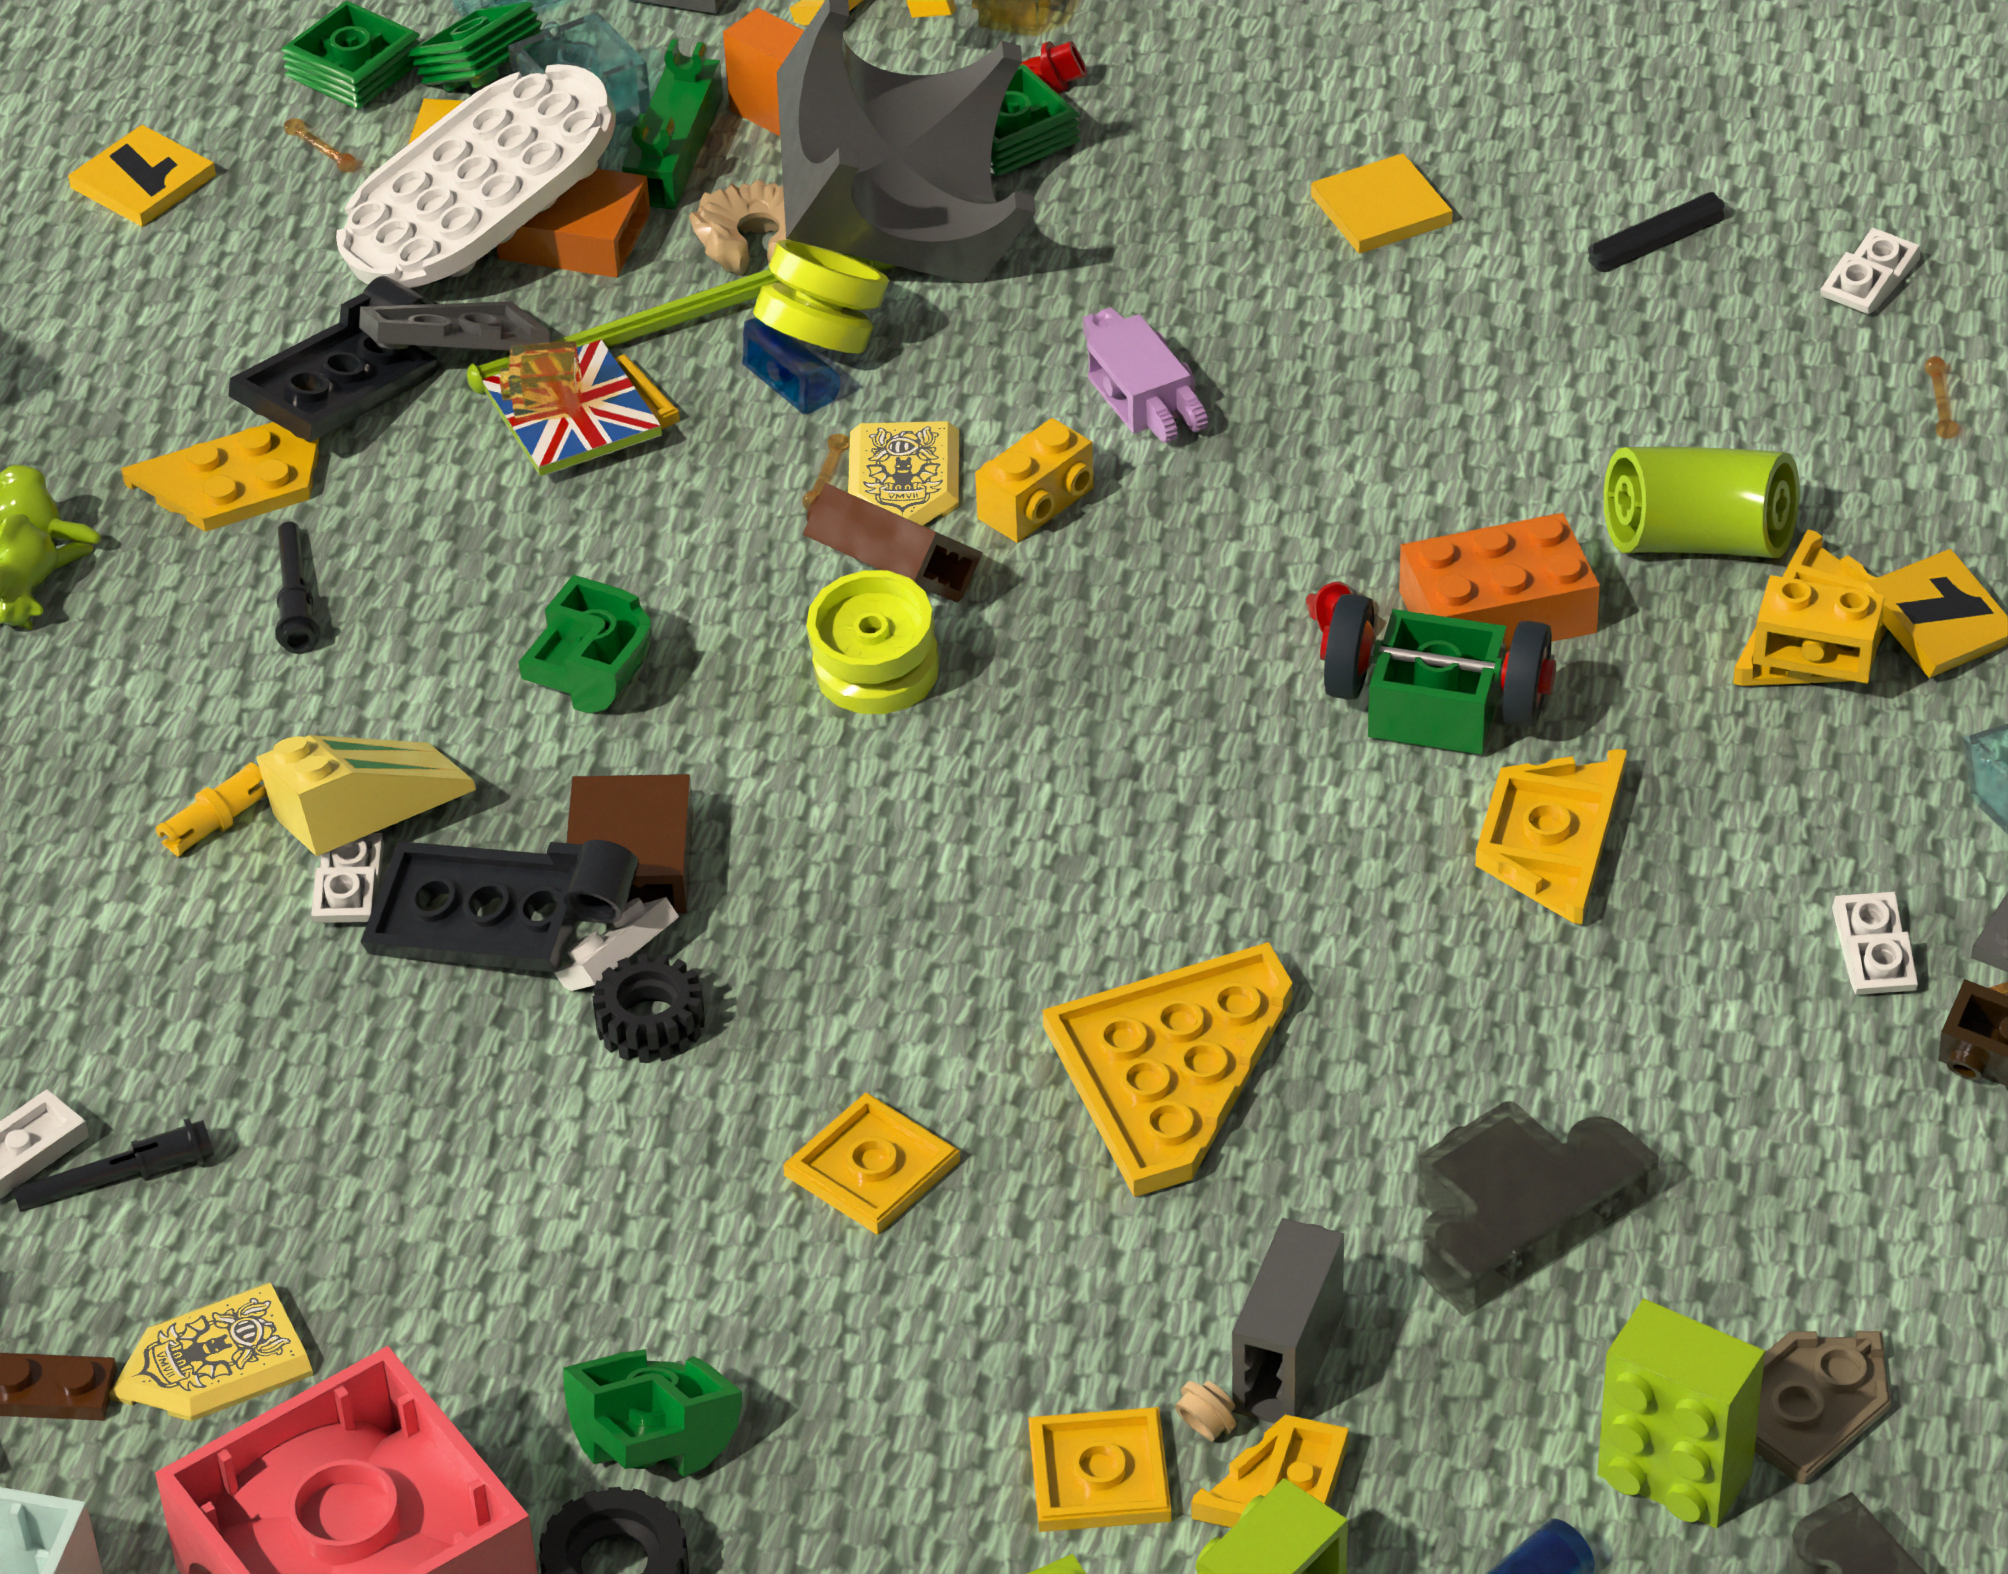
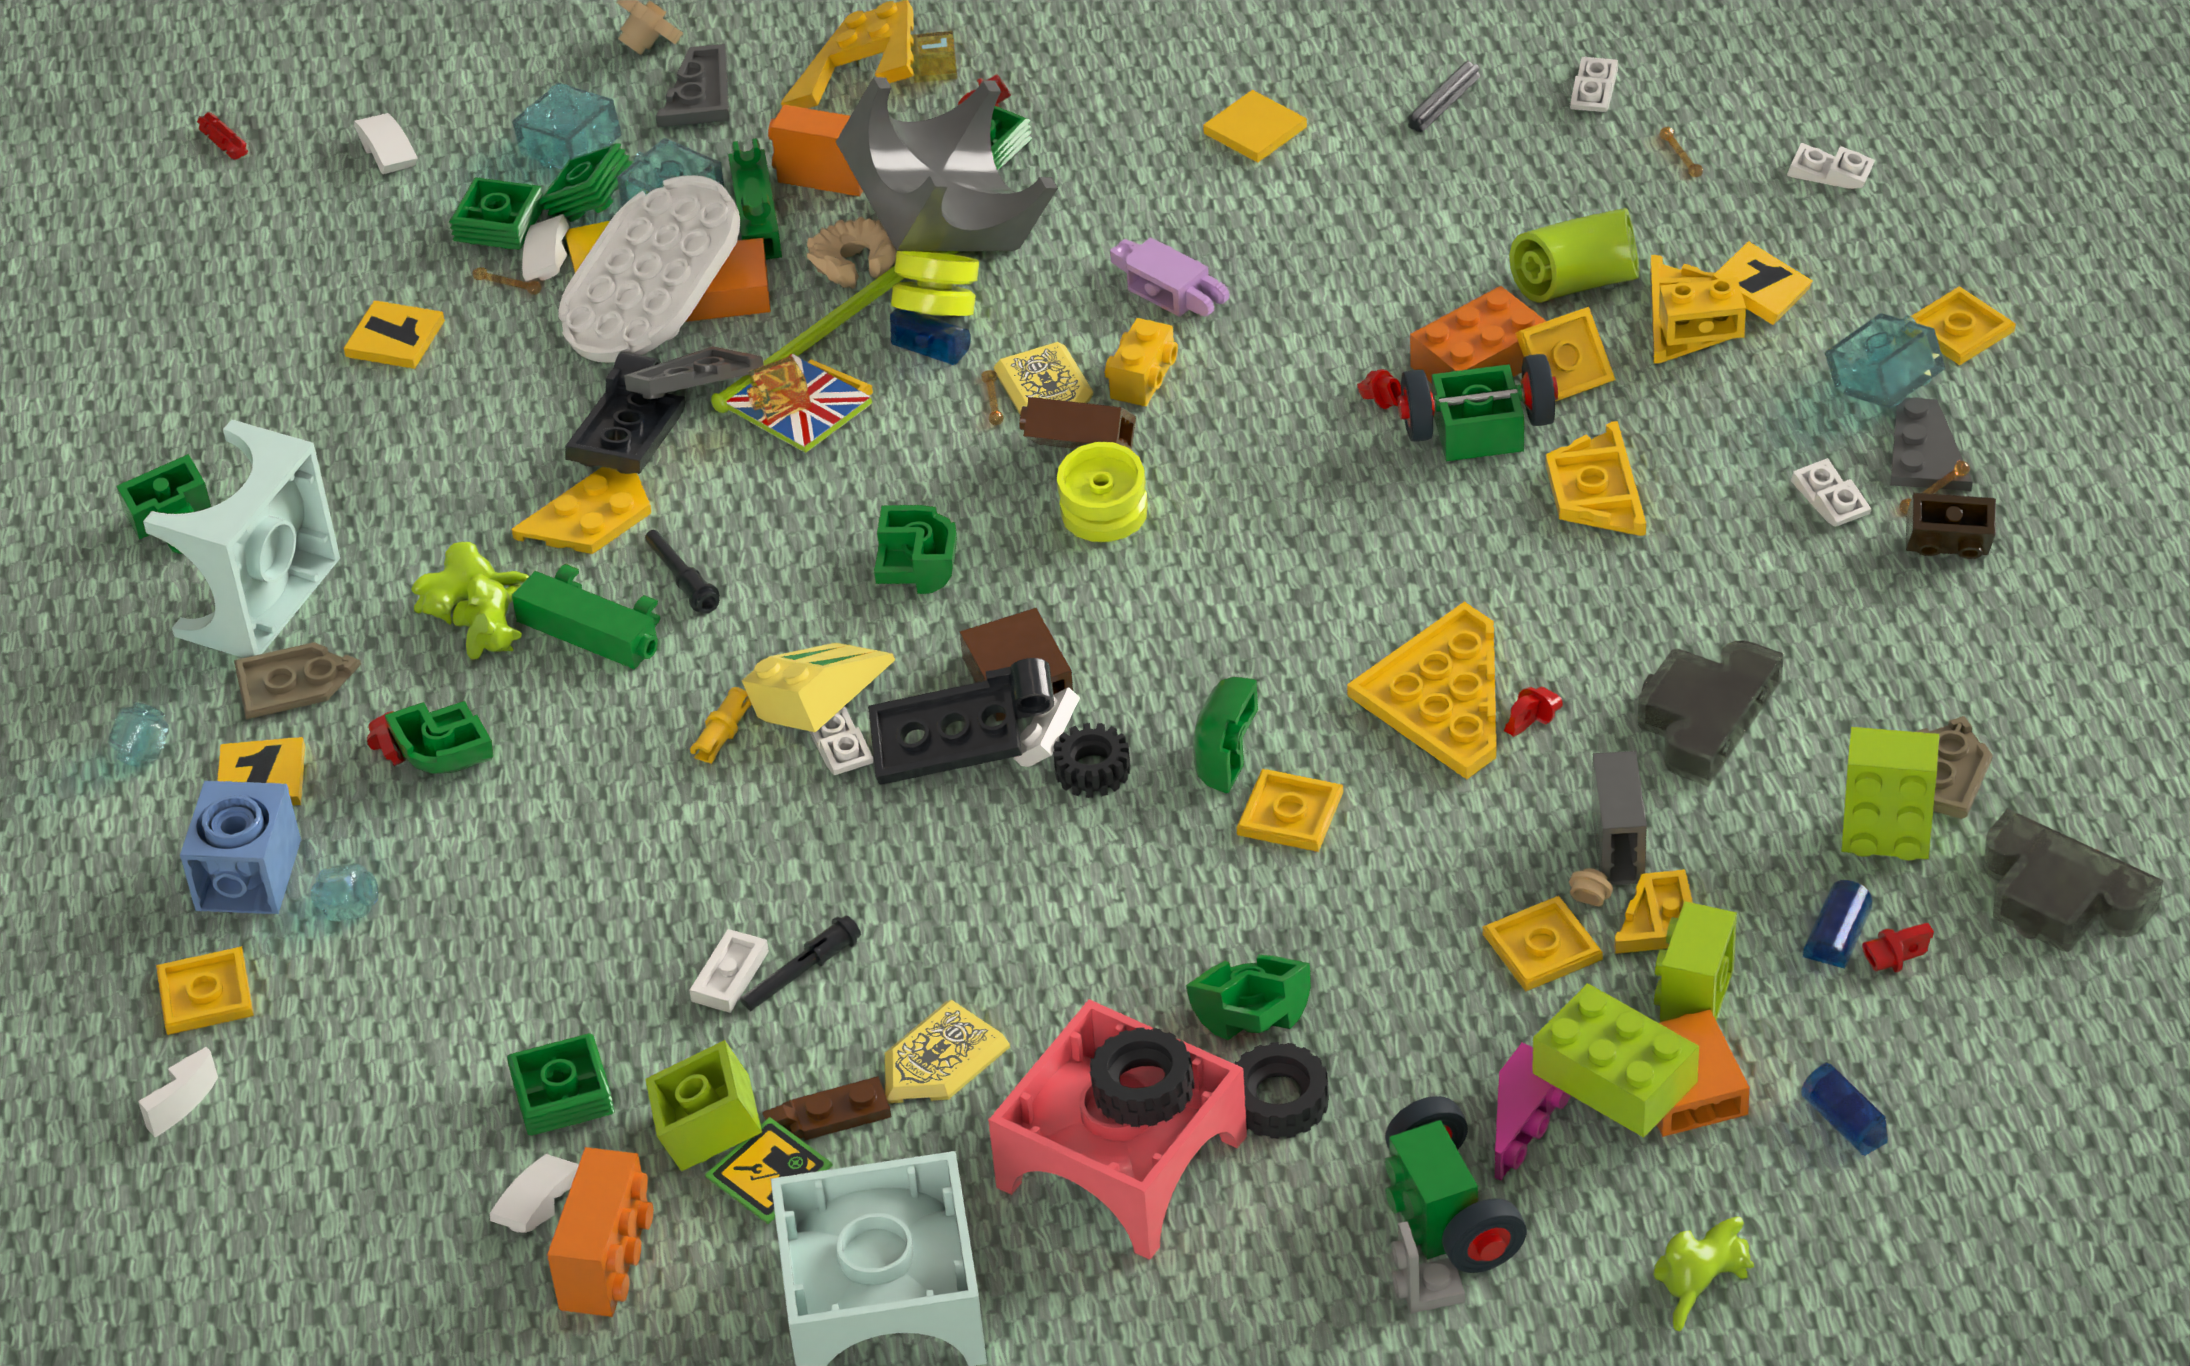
camera: 20 degrees left, 0 degrees up
(134, 618) = (587, 620): none -> green brick
(382, 116) = (544, 249): none -> white slope
(386, 1523) = (1145, 1104): none -> black tyre
(831, 1022) = (1221, 731): none -> green brick
(1278, 1121) = (1532, 706): none -> red piece
(1605, 636) = (1572, 351): none -> yellow tile

